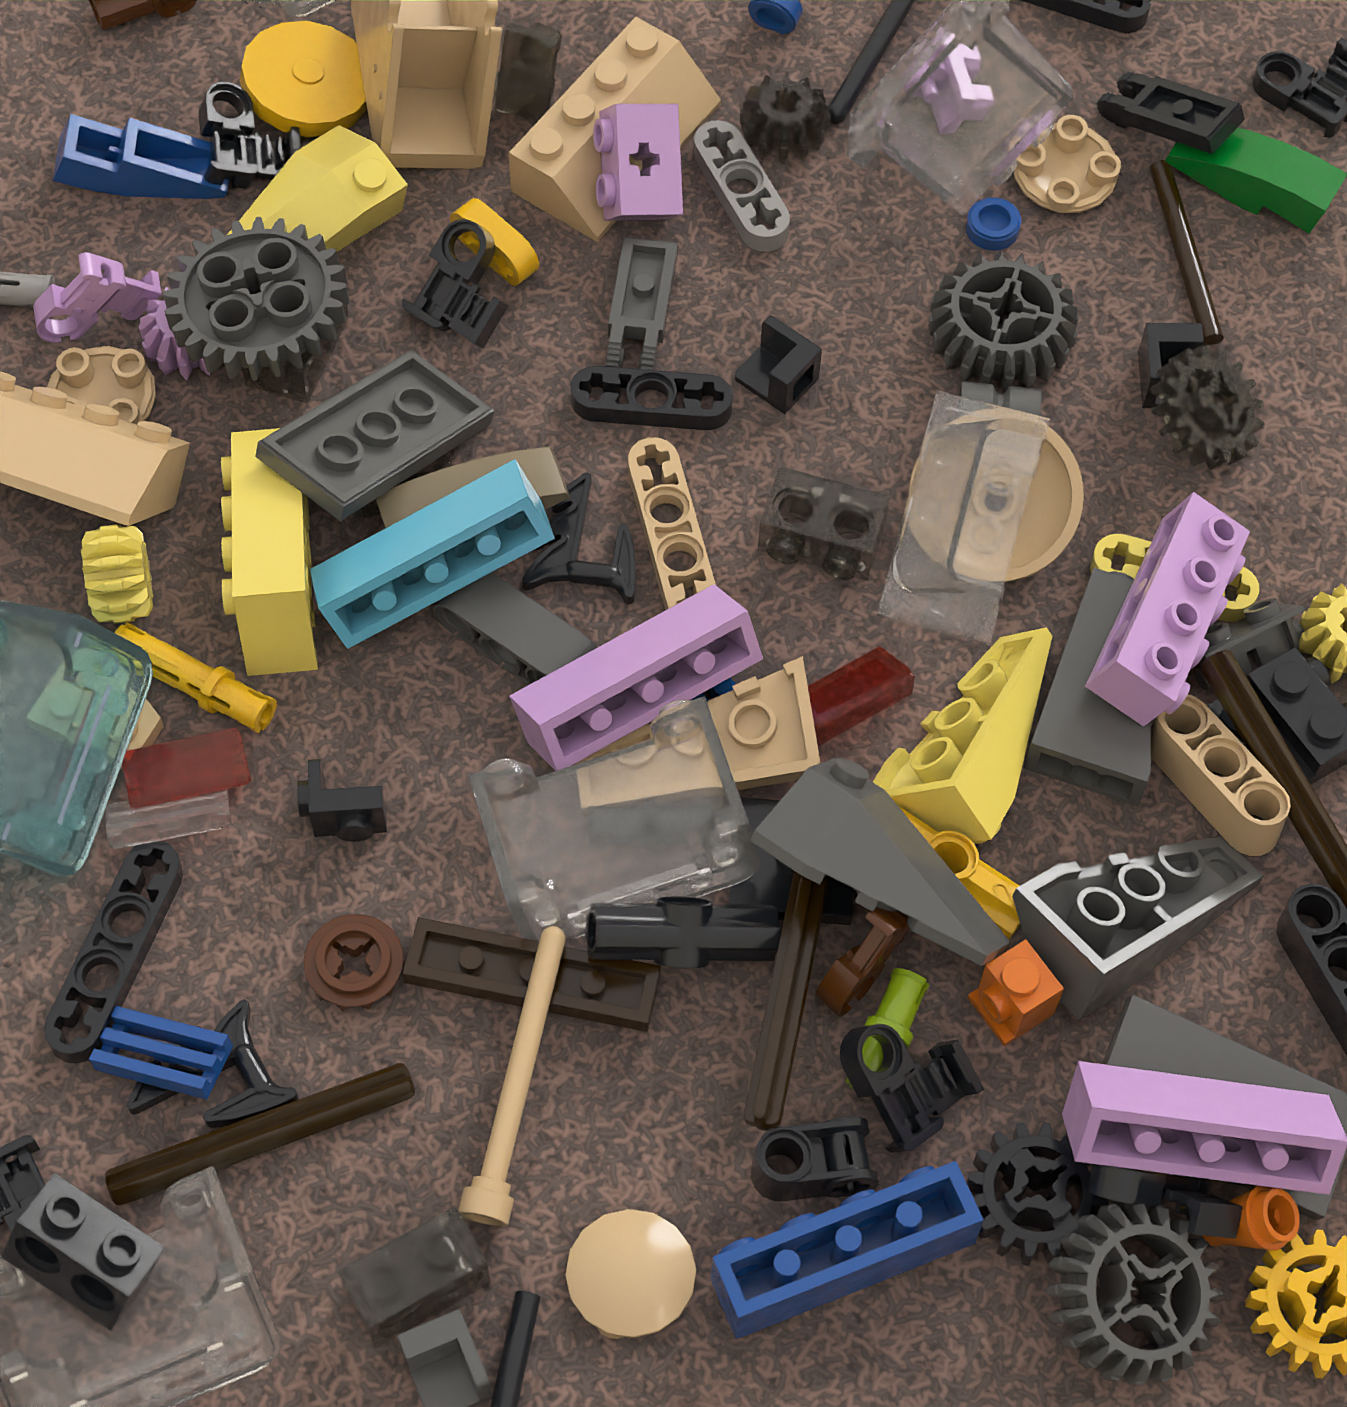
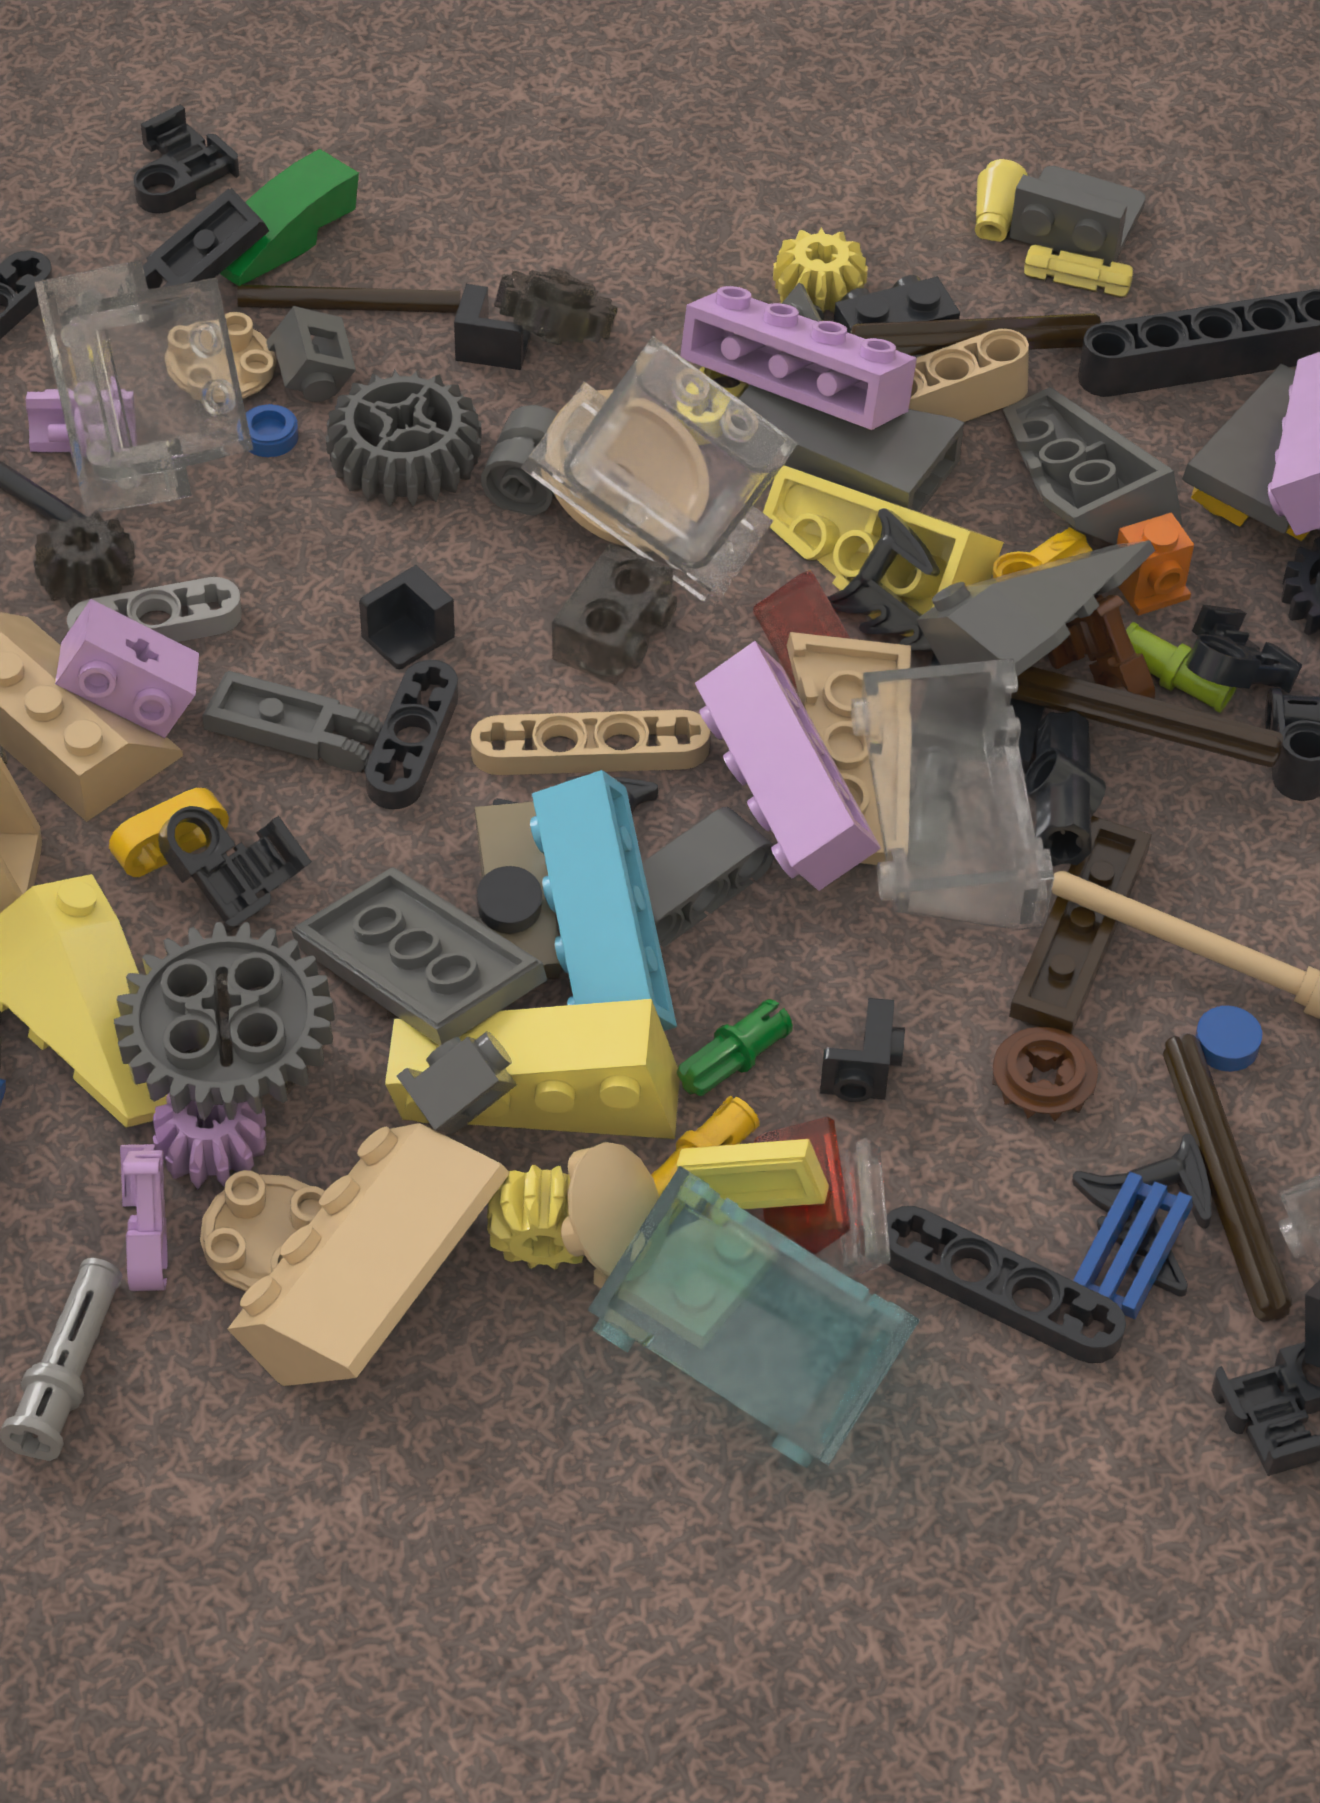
camera: 80 degrees left, 10 degrees down
(113, 596) = (606, 1203): none -> tan dish
(166, 718) = (760, 1173): none -> light yellow tile
(207, 467) = (460, 1081): none -> dark grey brick
(335, 699) = (734, 1048): none -> green axle
(424, 1124) = (1229, 1038): none -> blue tile
(429, 478) = (509, 899): none -> black tile
(908, 733) = (869, 596): none -> black piece
(1098, 225) = (315, 365): none -> dark grey brick

